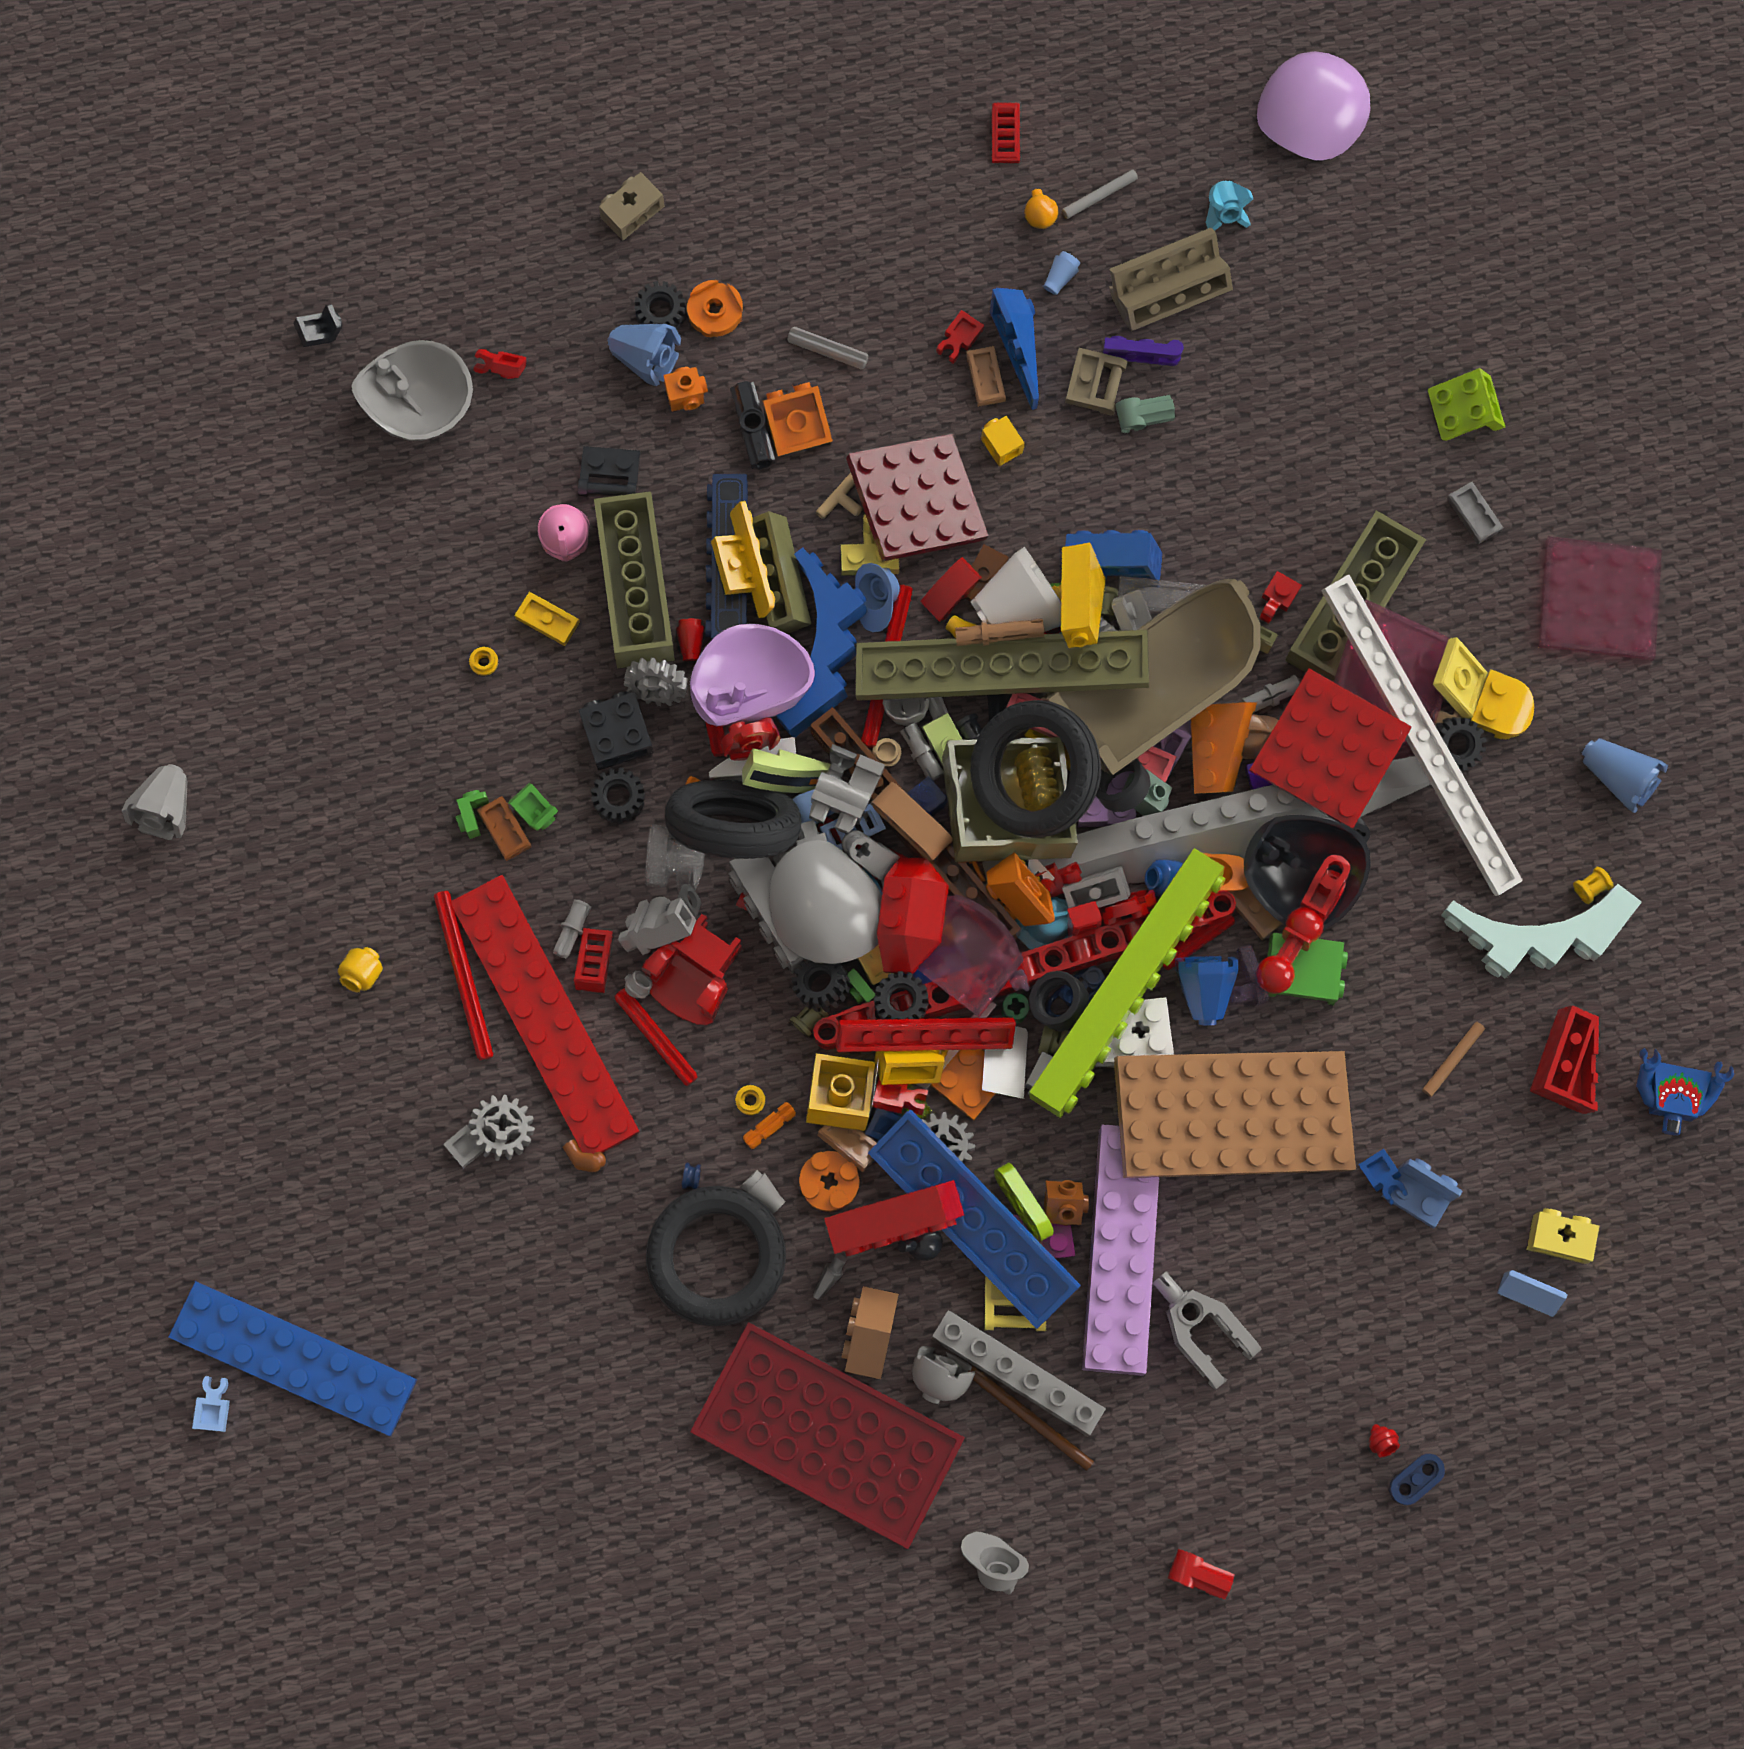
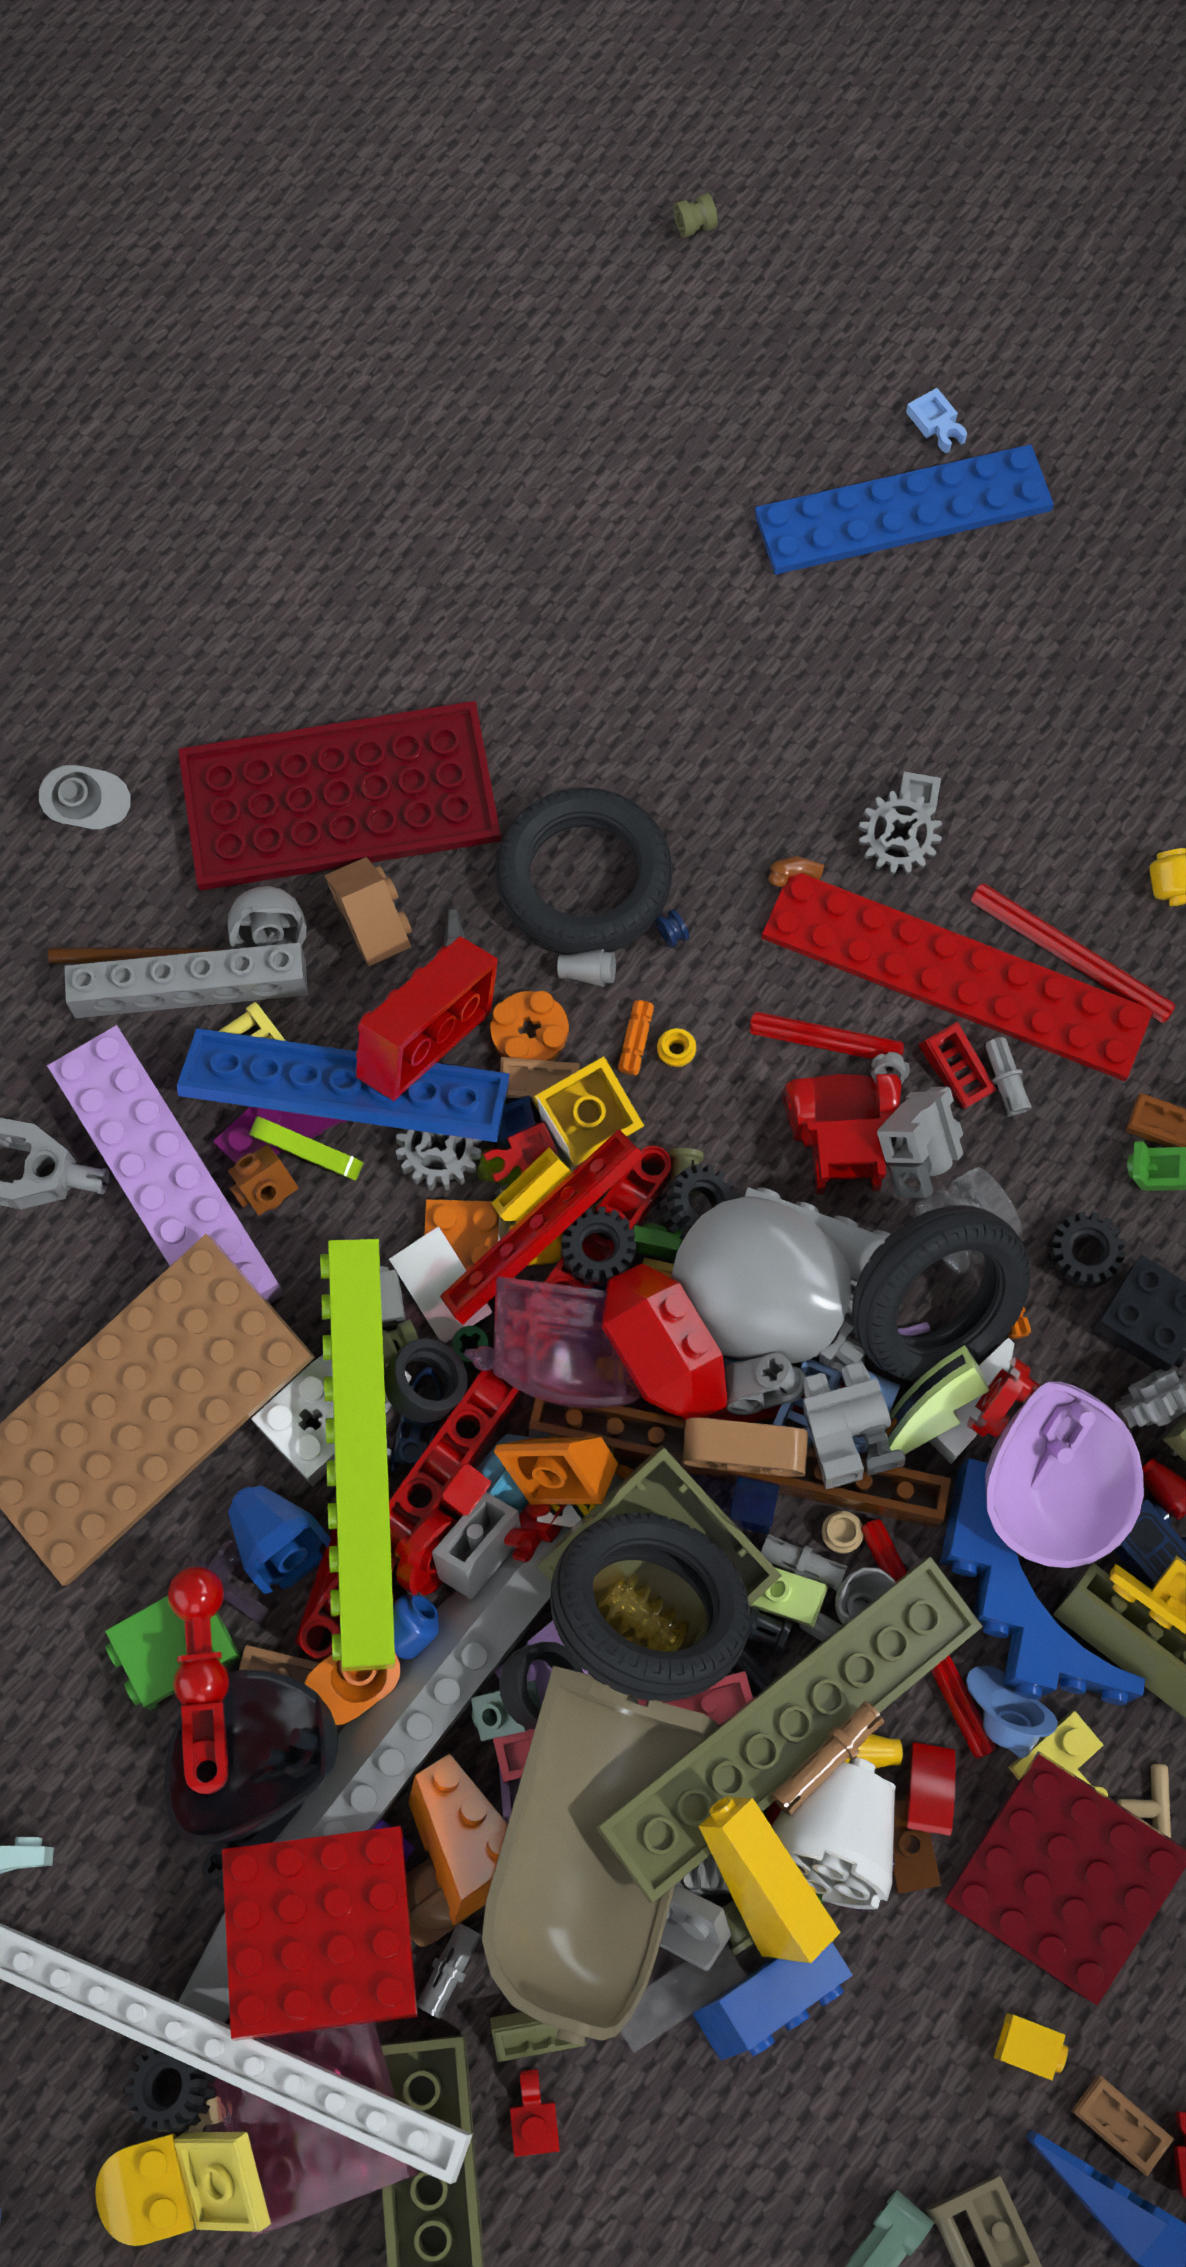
camera: 145 degrees right, 5 degrees down
(229, 1709) = (695, 215): none -> olive wheel

